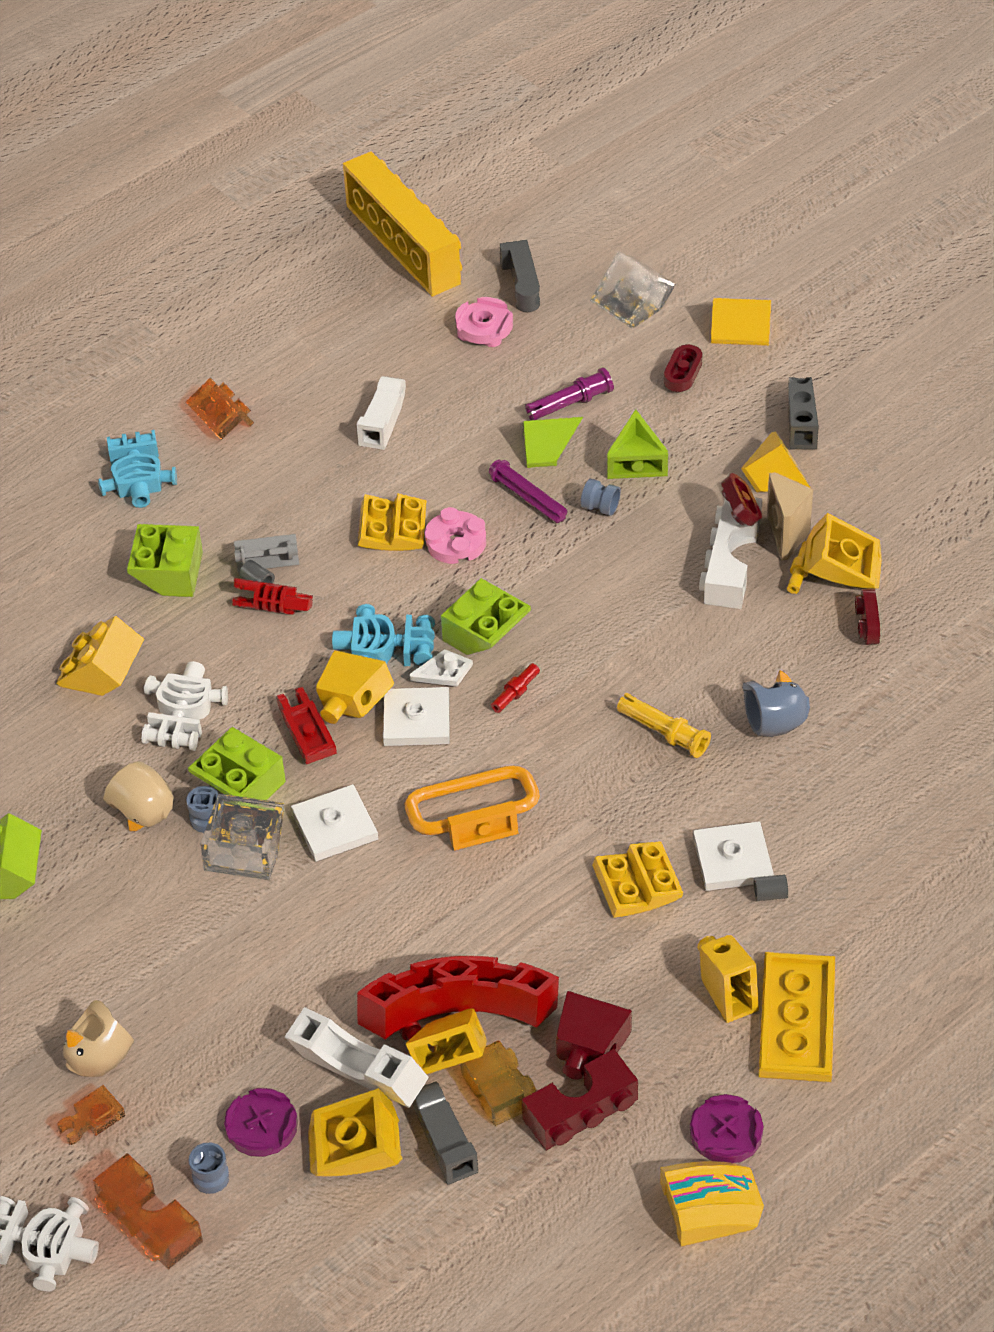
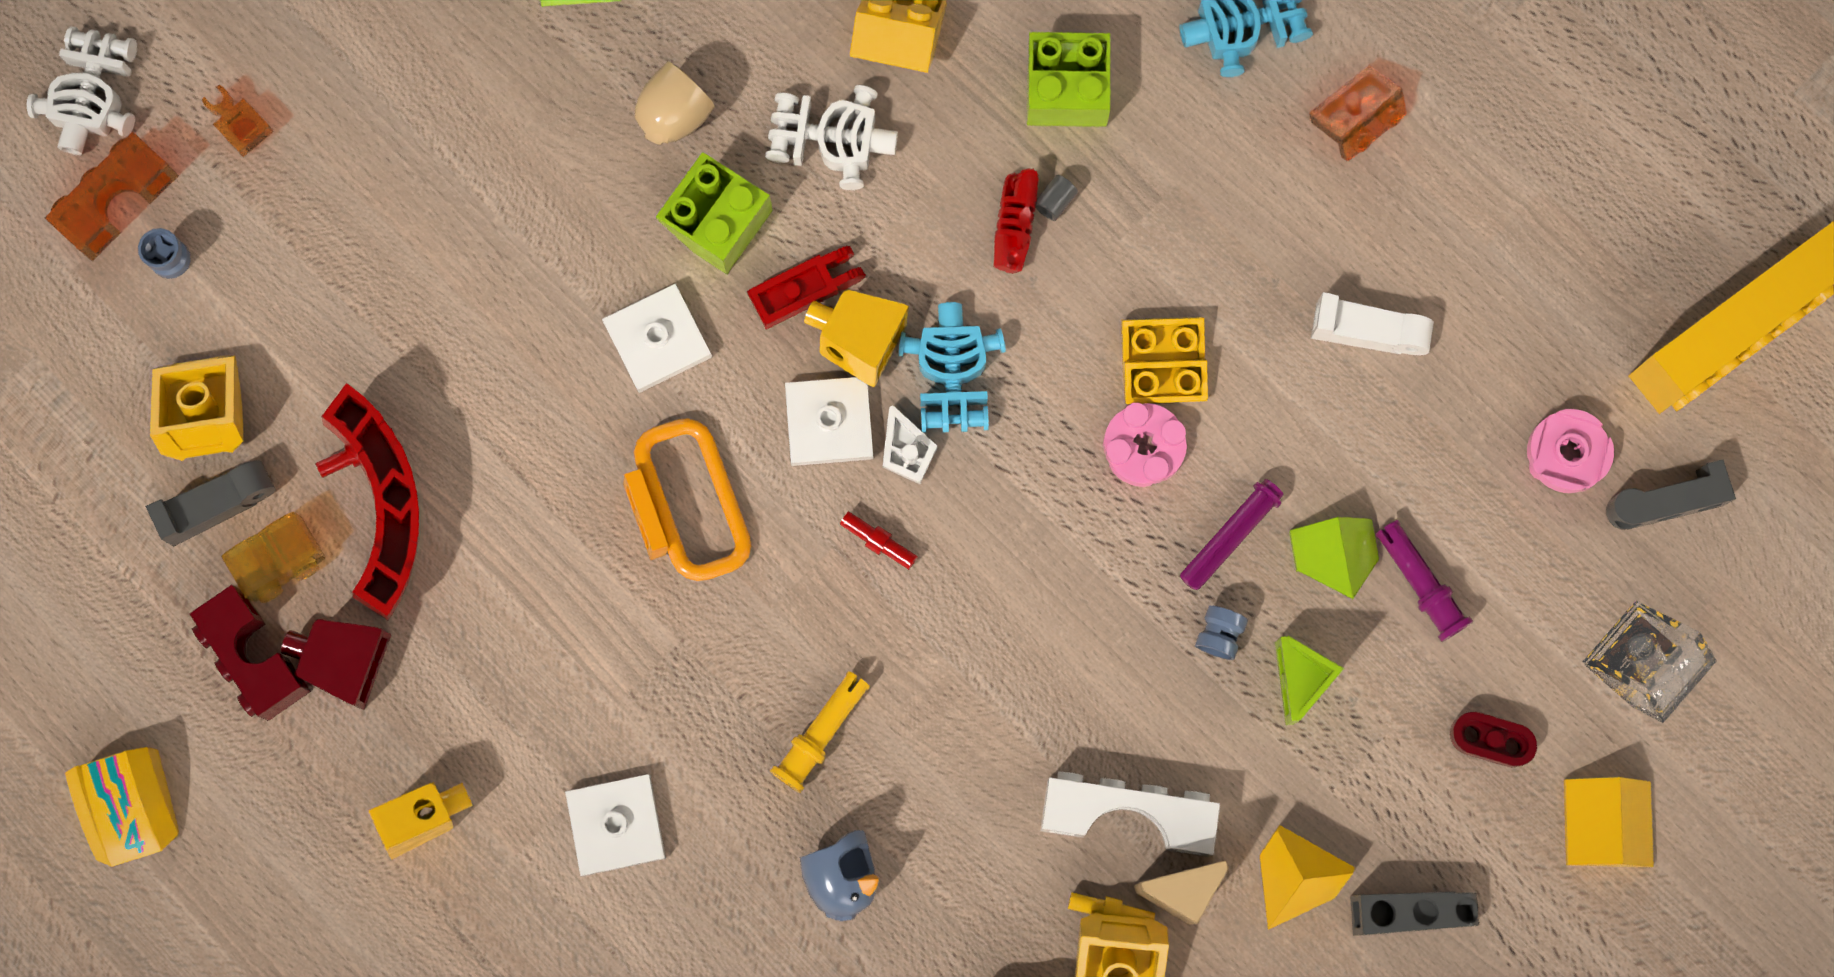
camera: 85 degrees right, 30 degrees up
(96, 1042) = (318, 110): tan piece -> none
(200, 806) = (660, 192): sand blue wheel -> none
(242, 836) = (610, 230): clear slope -> none
(261, 1122) = (234, 303): magenta tile -> none
(268, 551) = (1095, 203): light grey hinge -> none
(335, 1049) = (313, 362): white arch -> none
(454, 1039) = (311, 498): yellow torso -> none
(481, 617) = (978, 491): lime slope -> none
(637, 879) = (576, 708): yellow slope -> none
(726, 1129) = (222, 823): magenta tile -> none
(741, 500) = (1190, 823): dark red plate -> none
(770, 887) = (562, 872): dark grey hinge -> none
(797, 1017) = (378, 906): yellow tile -> none

